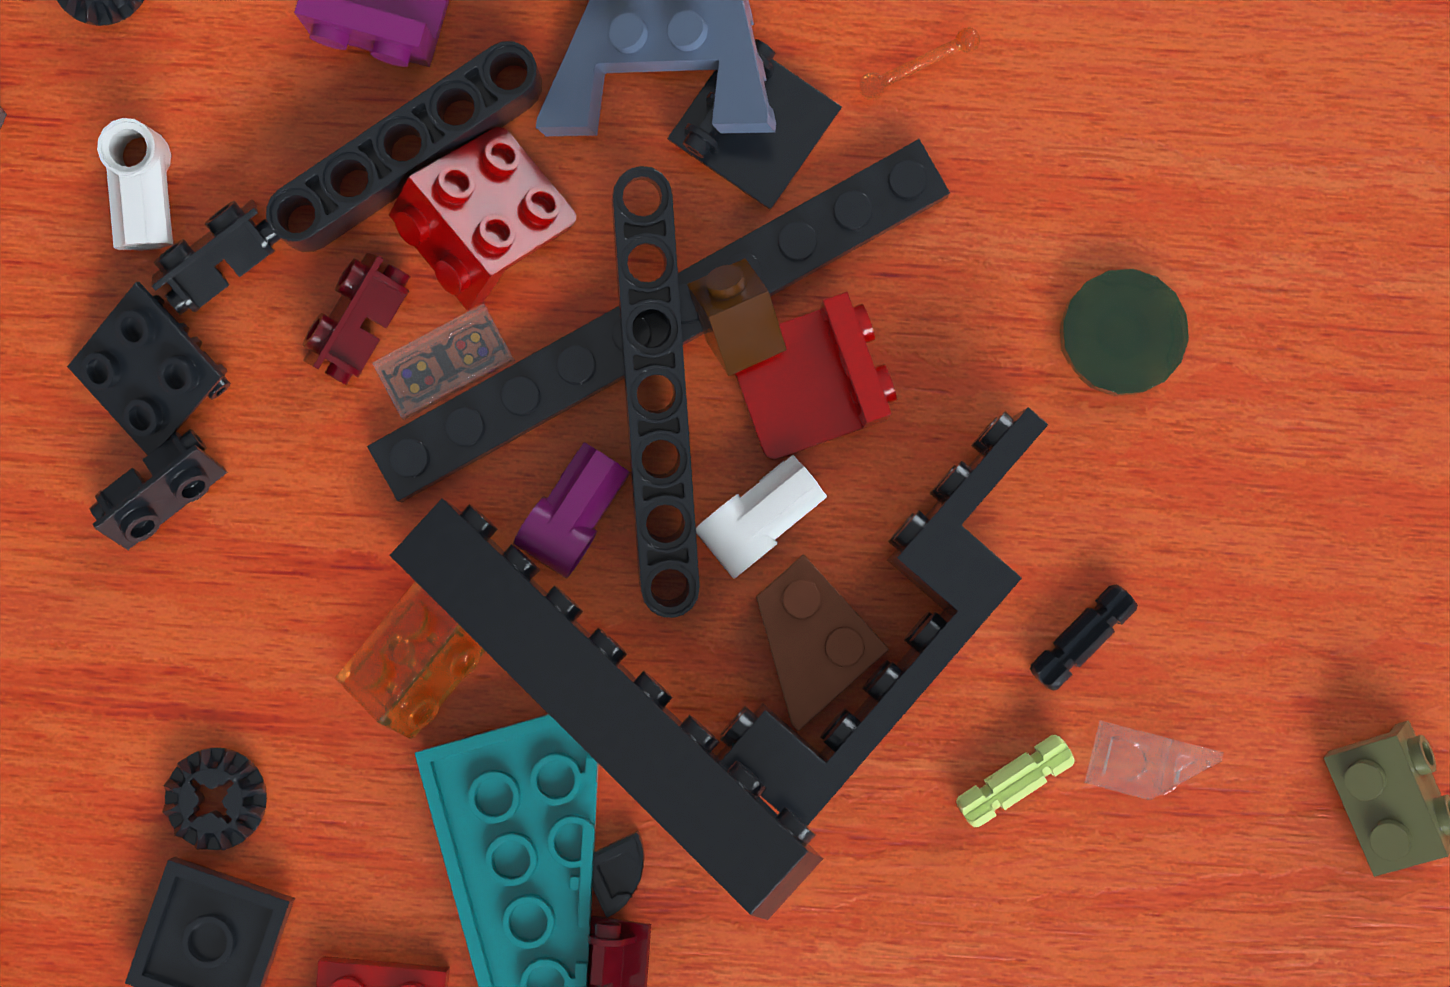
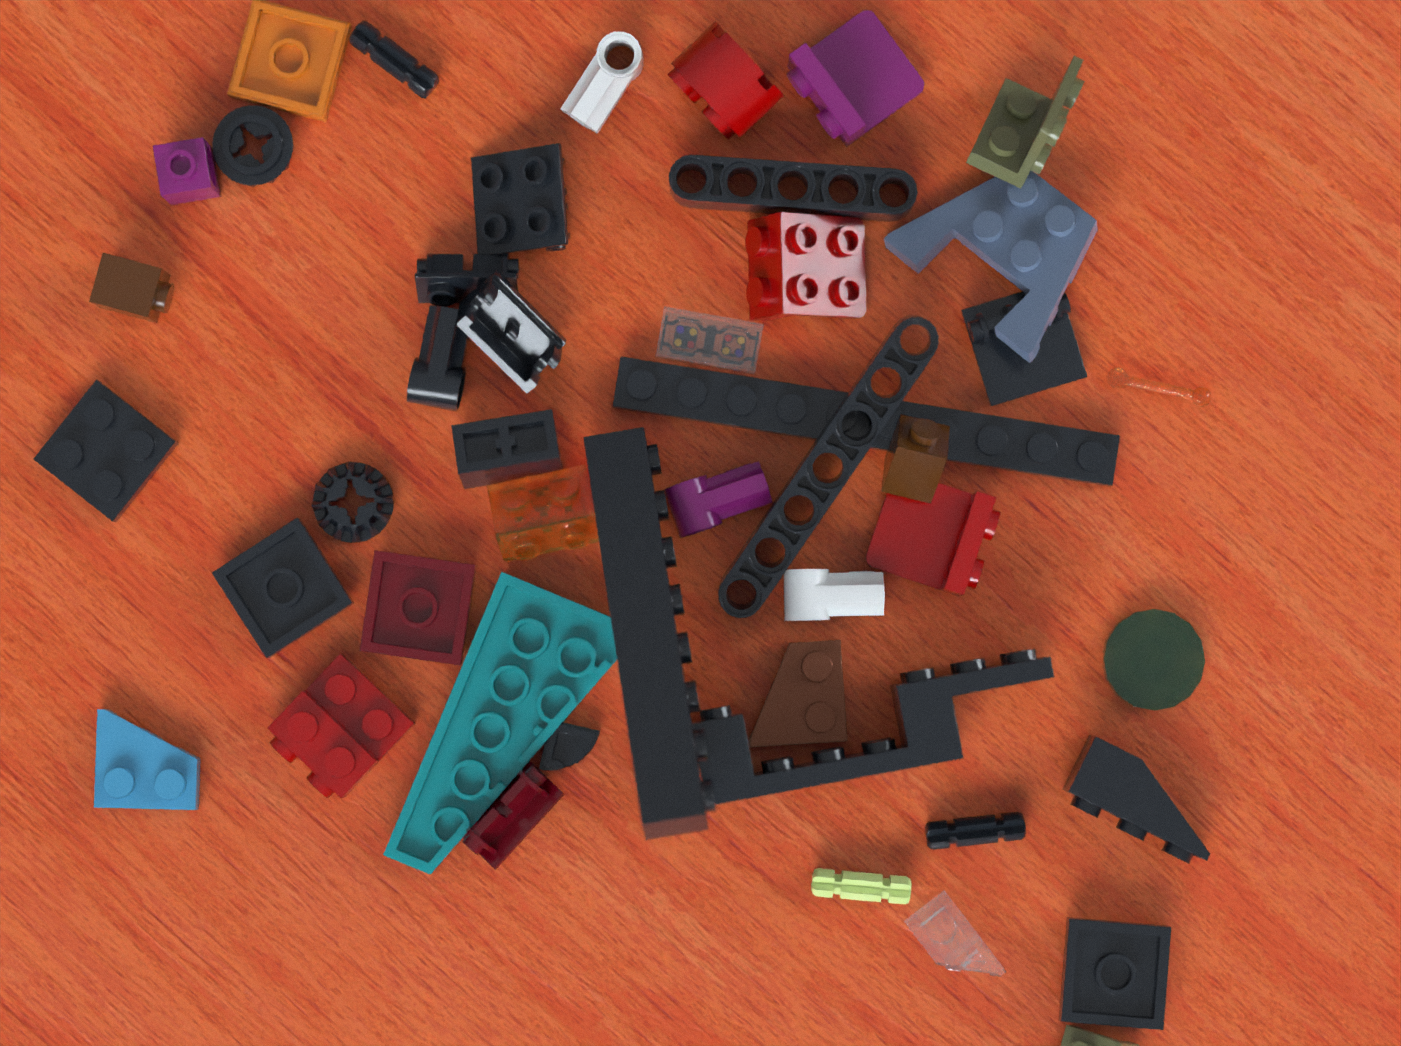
camera: 35 degrees right, 0 degrees up
(193, 268) = (599, 157): black hinge -> none
(197, 603) = (439, 372): none -> black piece
(233, 507) = (510, 331): none -> black hinge
(255, 89) = (726, 79): none -> red brick
(323, 626) = (506, 448): none -> black hinge
(360, 854) = (418, 607): none -> dark red plate
(363, 295) = (691, 258): dark red hinge -> none
(1199, 478) = (1126, 788): none -> black slope
(1331, 669) = (1115, 973): none -> black plate

